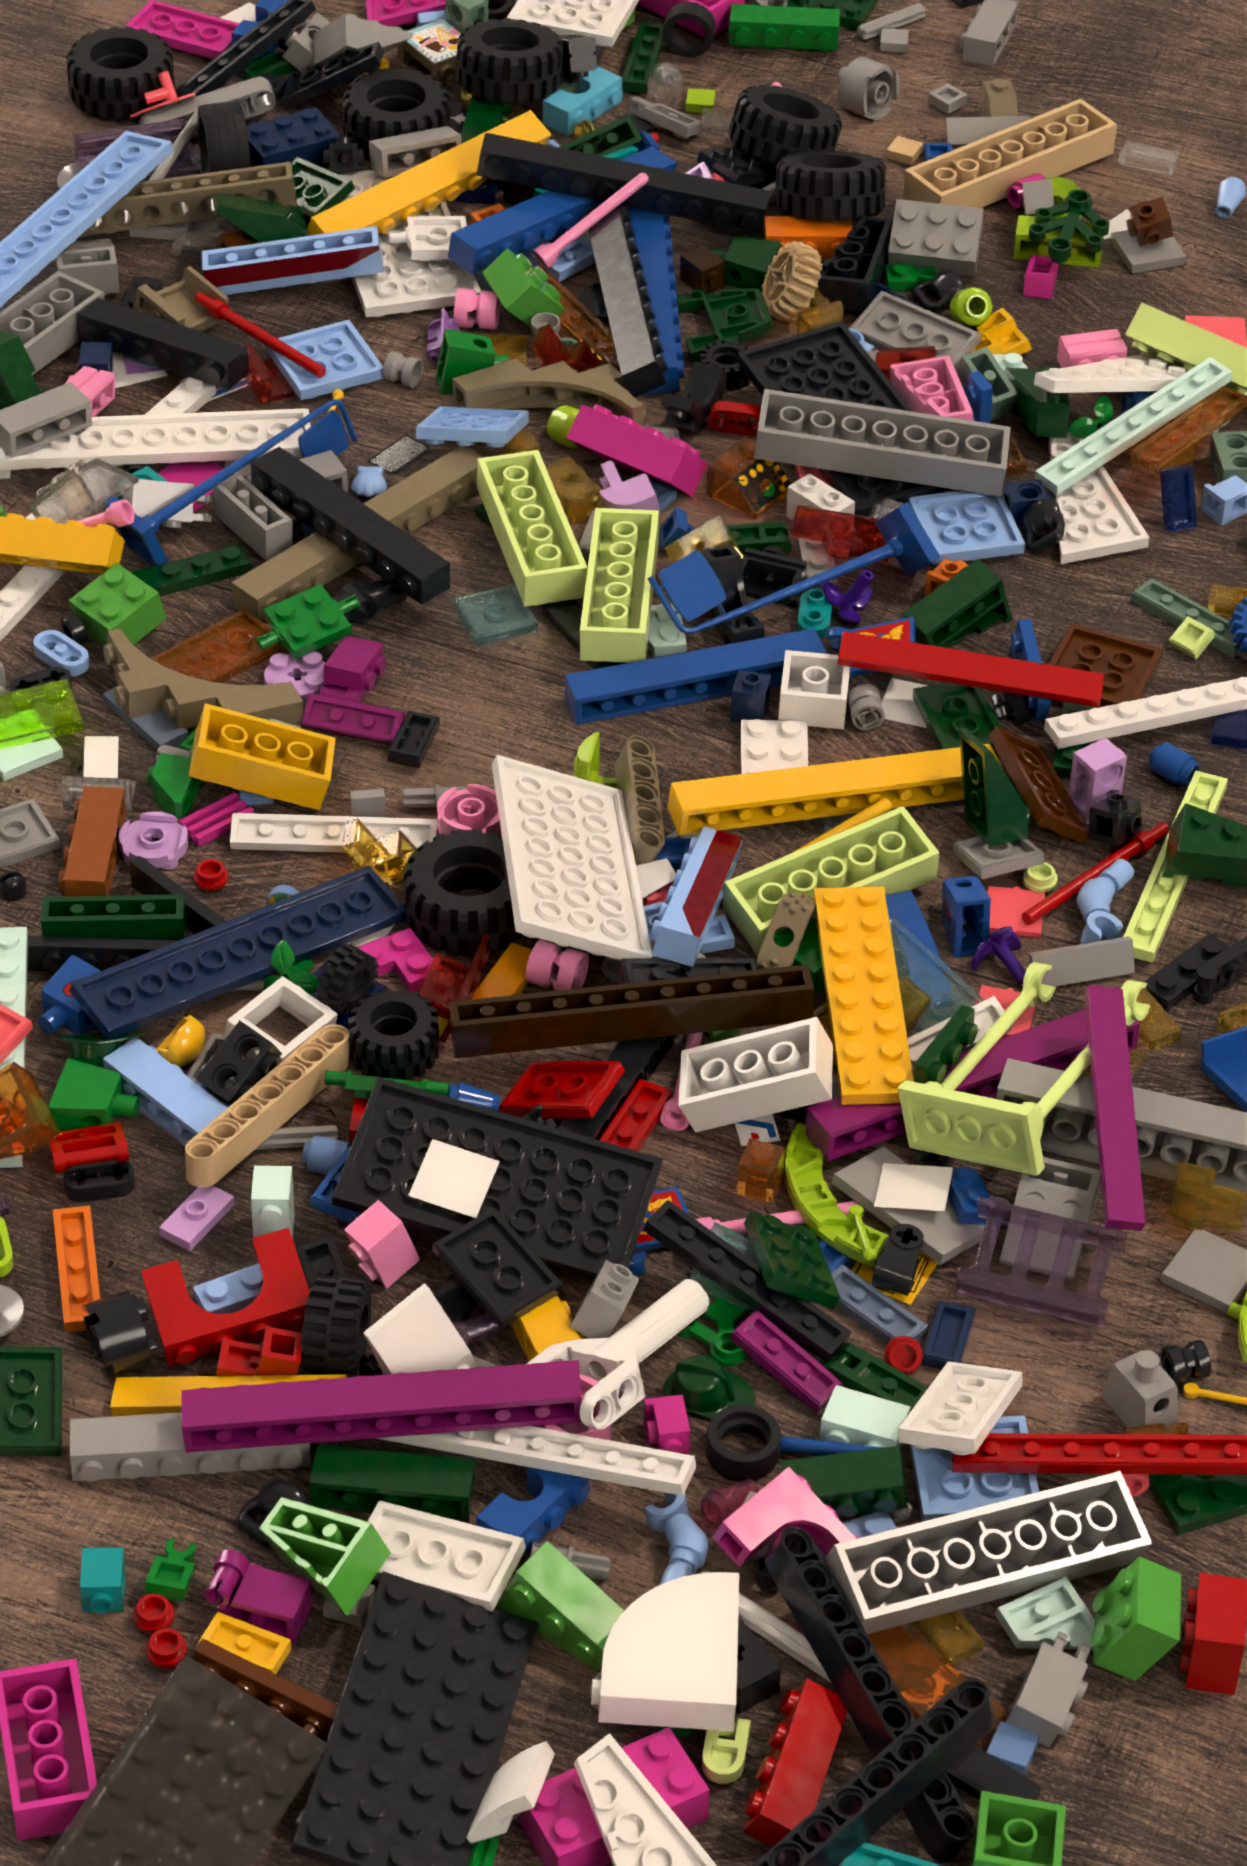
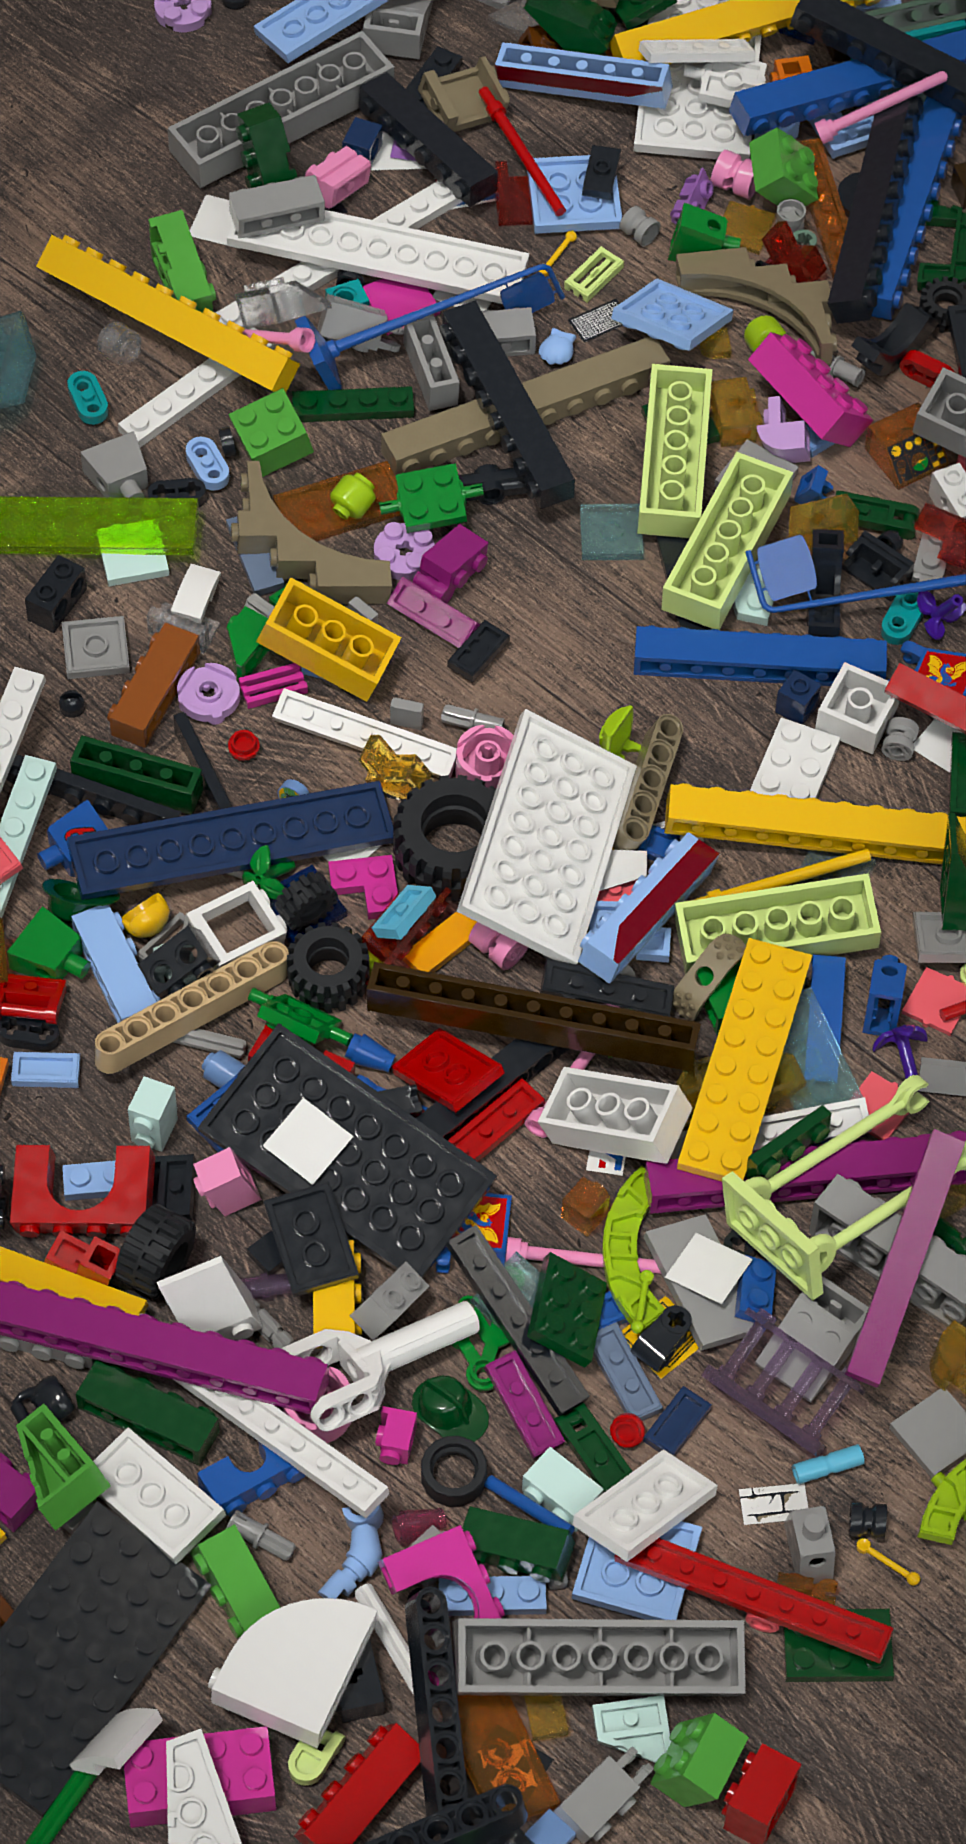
camera: 20 degrees right, 15 degrees up
(133, 1209) = (46, 1069): none -> light blue tile
(196, 1216) = (94, 1095): lavender plate -> none
(227, 639) = (352, 496): none -> lime head
(346, 334) = (601, 172): none -> black plate
(384, 412) = (593, 282): none -> yellowish green tile
(396, 214) = (697, 50): none -> white tile
(453, 962) = (404, 912): none -> medium azure plate
(1078, 1381) = (771, 1502): none -> white sticker
(1121, 1326) = (831, 1463): none -> medium azure piece

